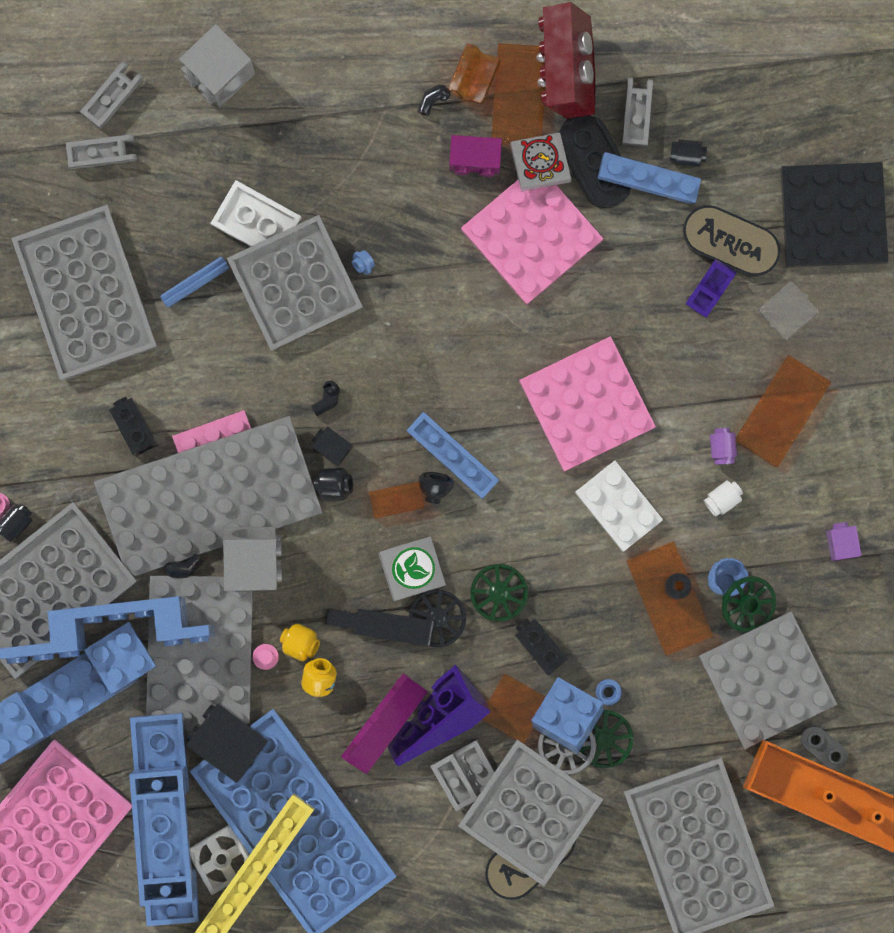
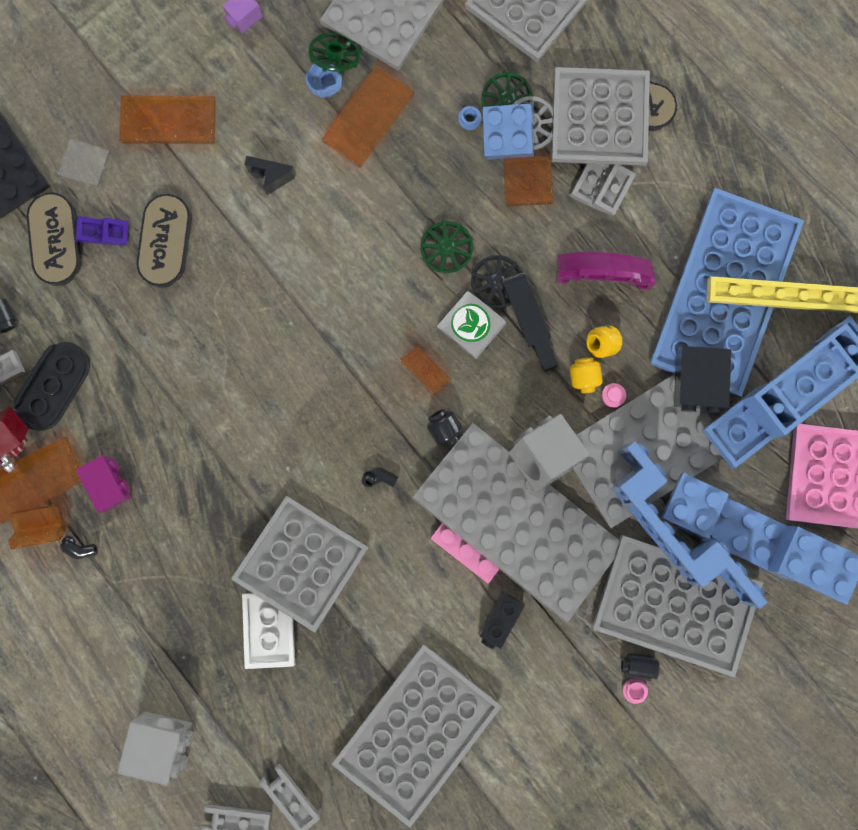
camera: 120 degrees left, 0 degrees up
(183, 569) = (589, 505): black arm -> none
(194, 282) = (350, 647): medium blue axle -> none
(213, 845) = (812, 322): white piece -> none
(331, 445) = (414, 449): black brick -> none
(363, 262) = (249, 519): medium blue plate -> none
(435, 486) = (394, 346): black brick -> none
(446, 713) = (566, 228): dark purple wedge -> none
(452, 455) = (362, 349): medium blue plate -> none
(531, 237) = (143, 398): bright pink plate -> none
(540, 161) = (77, 426): light grey tile -> none
(540, 646) = (468, 188): black brick -> none
(587, 404) = (254, 271): bright pink plate -> none
(618, 506) = (320, 197): white plate -> none
(649, 178) = (40, 333): medium blue plate -> none
(665, 477) = (276, 173): none -> black slope
(667, 339) = (164, 240): none -> dark tan tile
(669, 590) = (355, 109): black brick -> none
(723, 446) = (223, 145): medium lavender brick -> none
(723, 498) = (264, 120): white brick -> none

